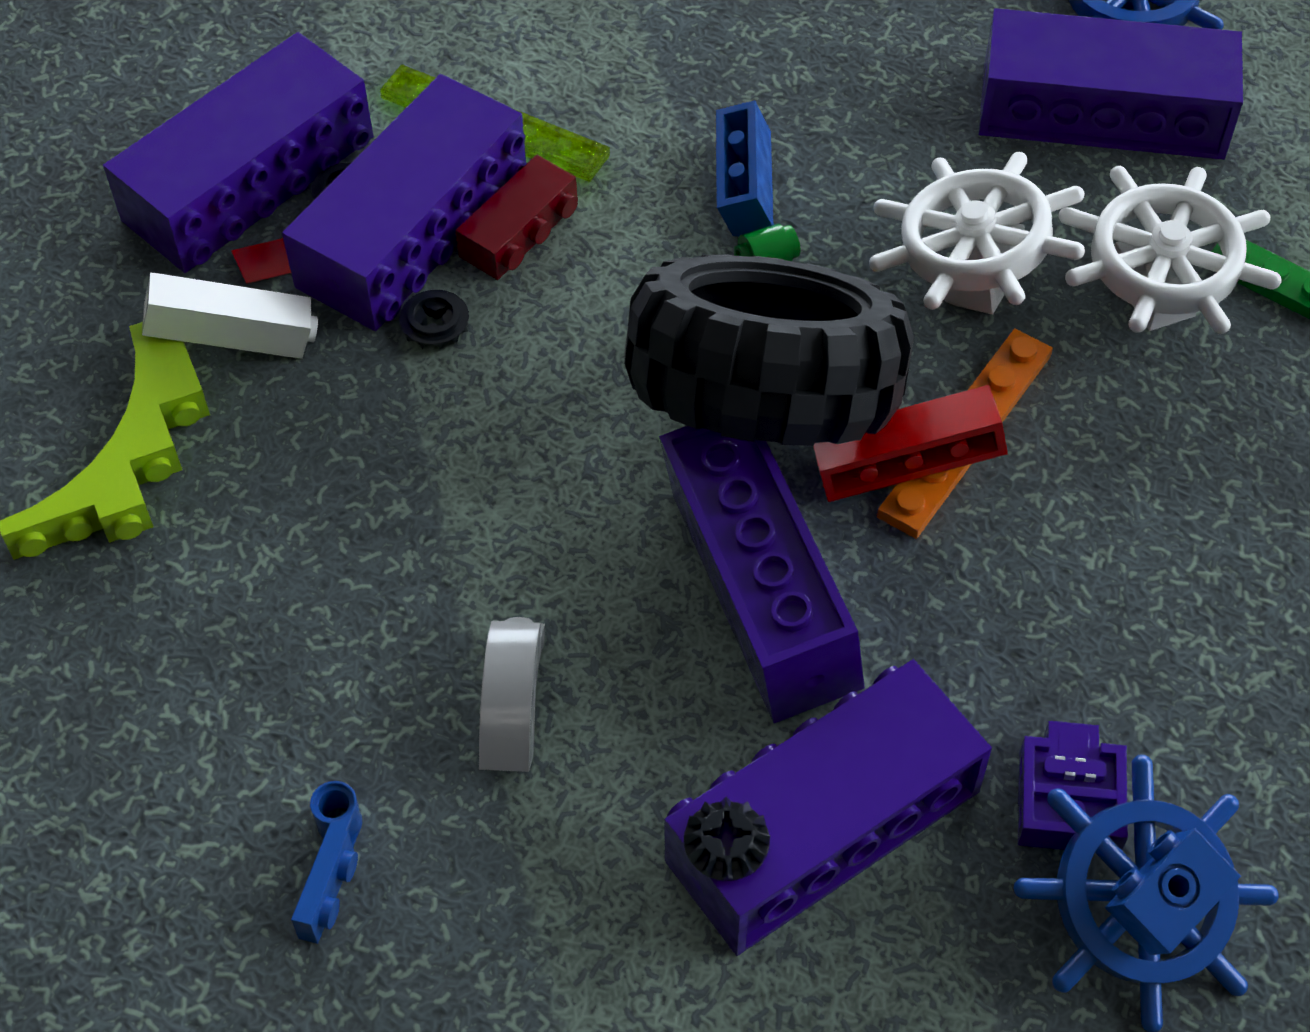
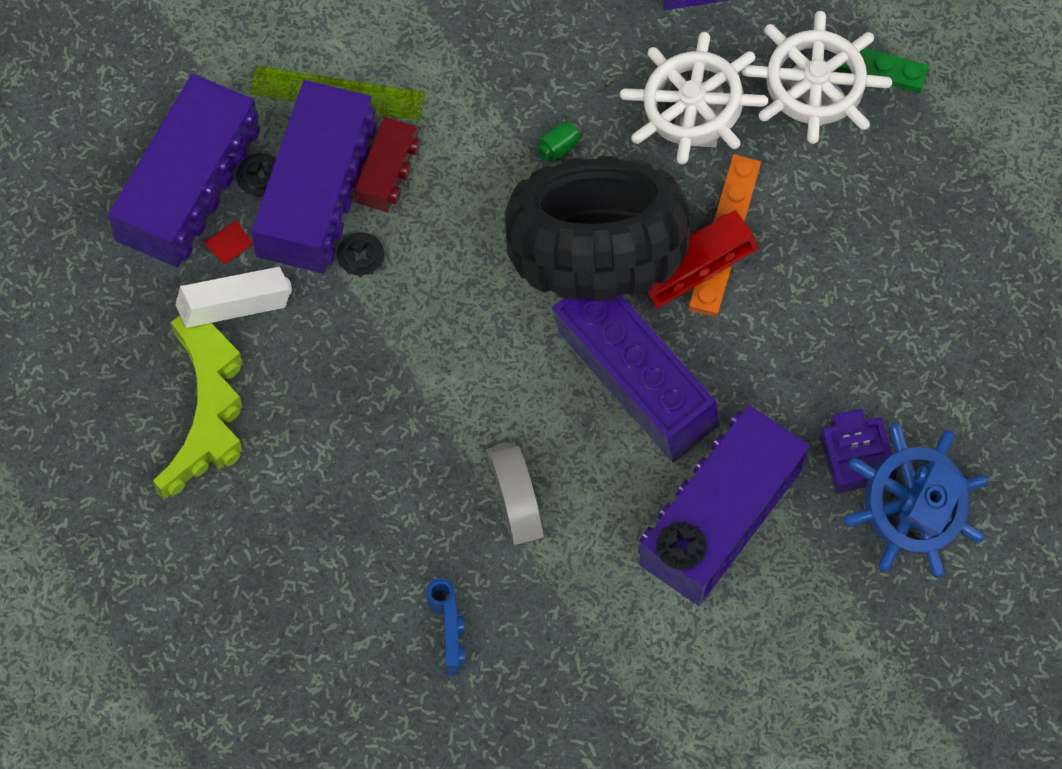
camera: 20 degrees left, 10 degrees up
(744, 168) = (524, 87): blue brick -> none

